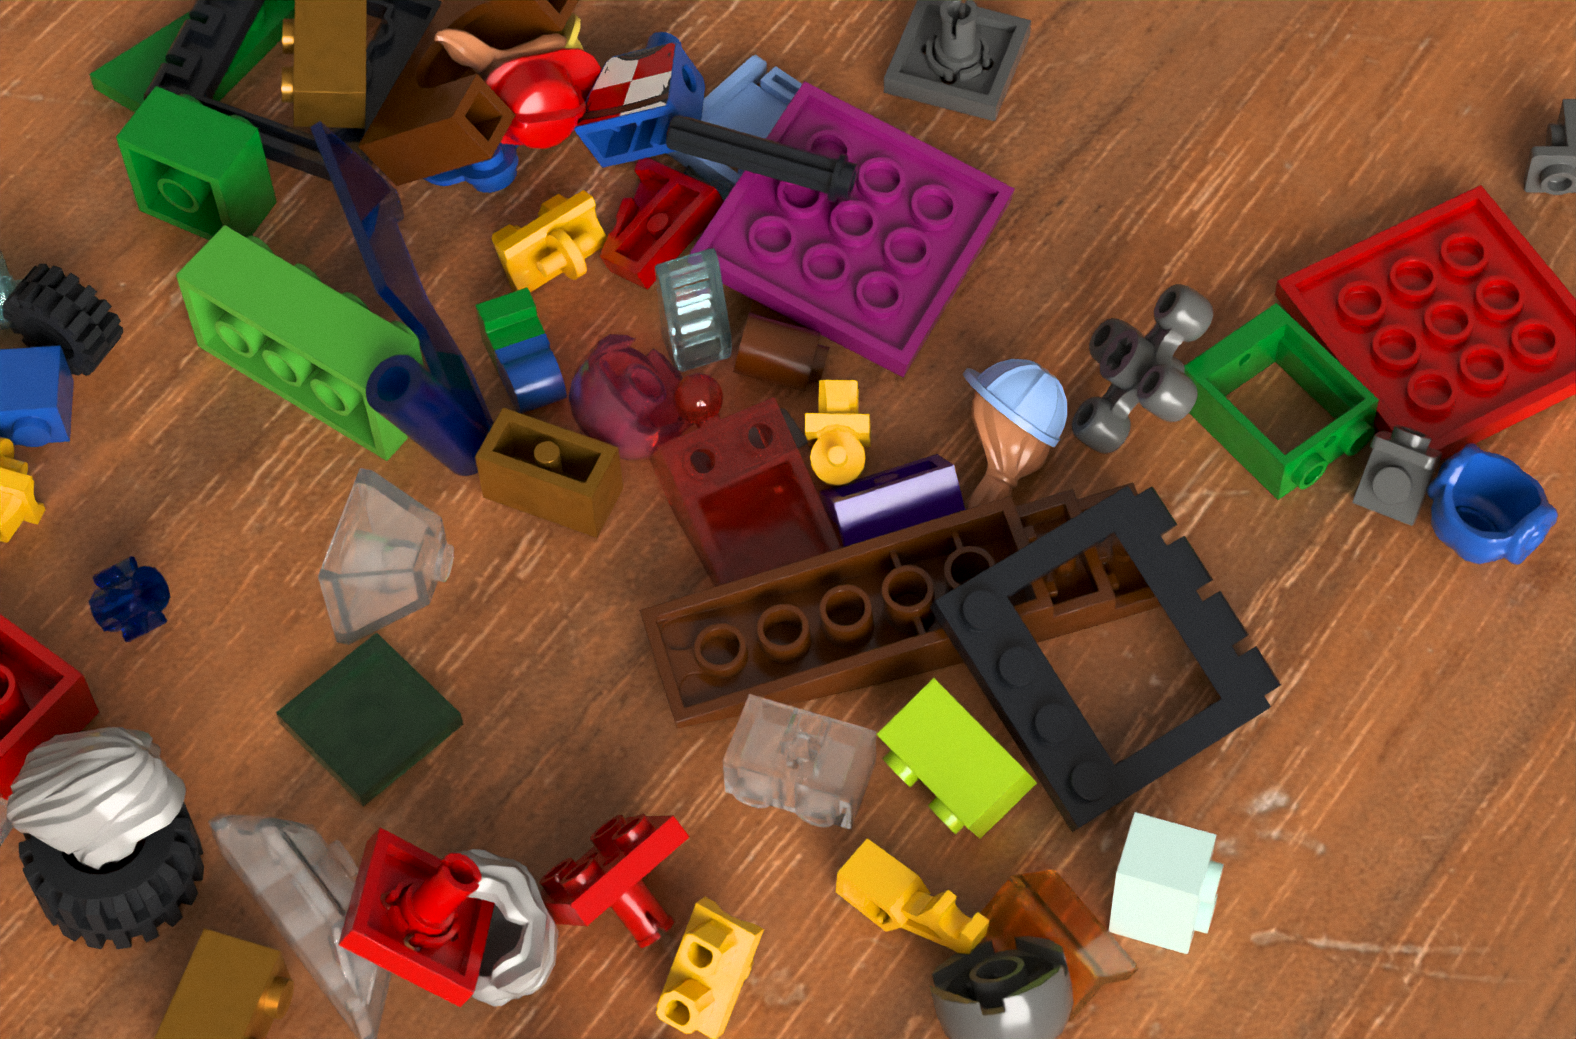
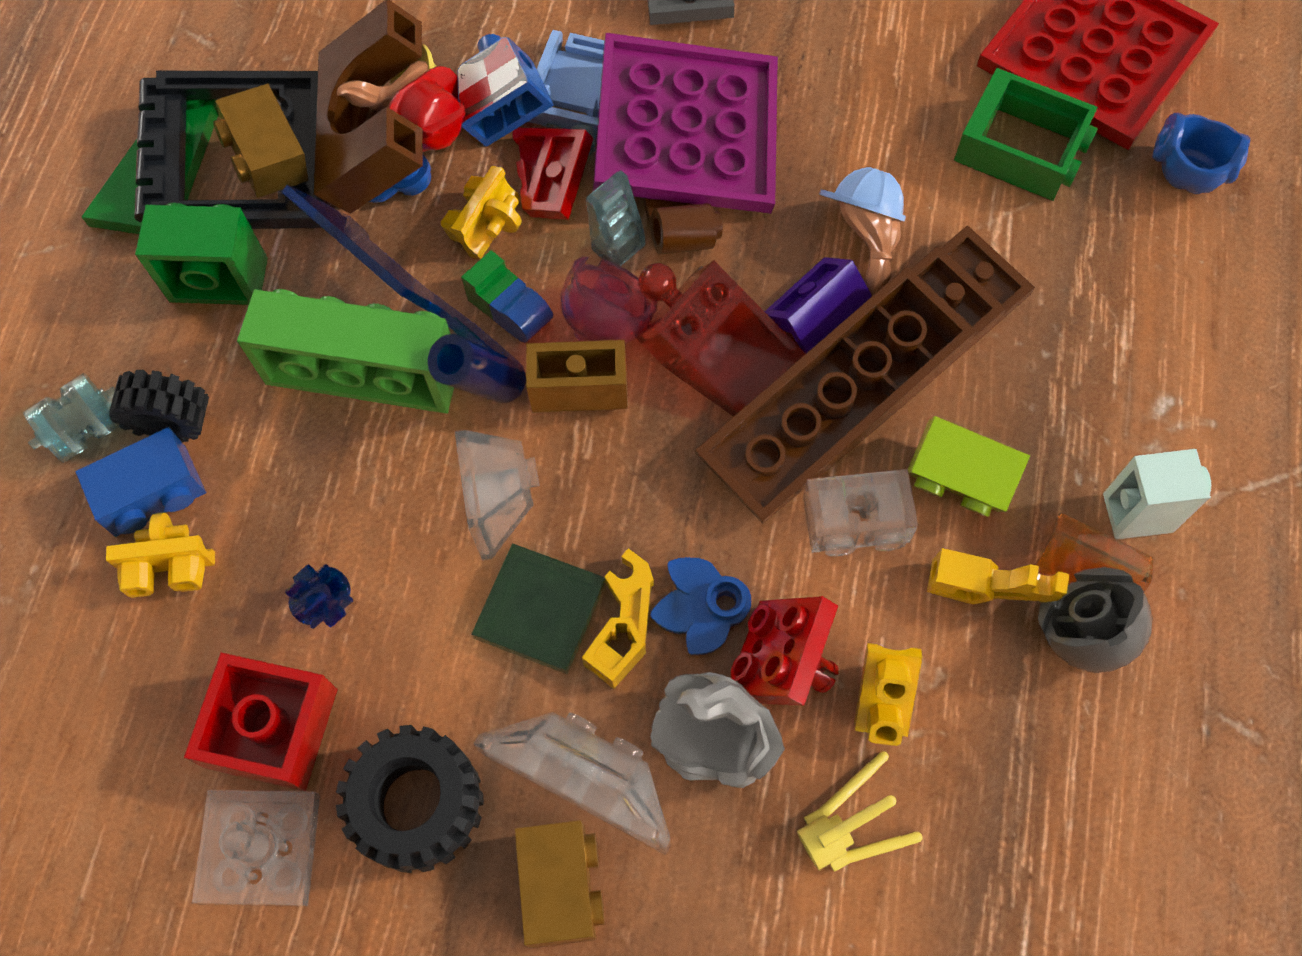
camera: 25 degrees left, 10 degrees up
(95, 794) = (386, 768): light grey hair -> none
(425, 909) = (685, 746): red plate -> none
(474, 765) = (634, 601): none -> yellow piece
(548, 792) = (694, 607): none -> blue plate
(763, 156) = (610, 94): black axle -> none
(838, 433) = (759, 263): yellow hips -> none
(1035, 701) = (985, 393): black hinge -> none
(1142, 369) = (940, 144): dark grey gear -> none
(1398, 474) = (1130, 152): dark grey bracket -> none

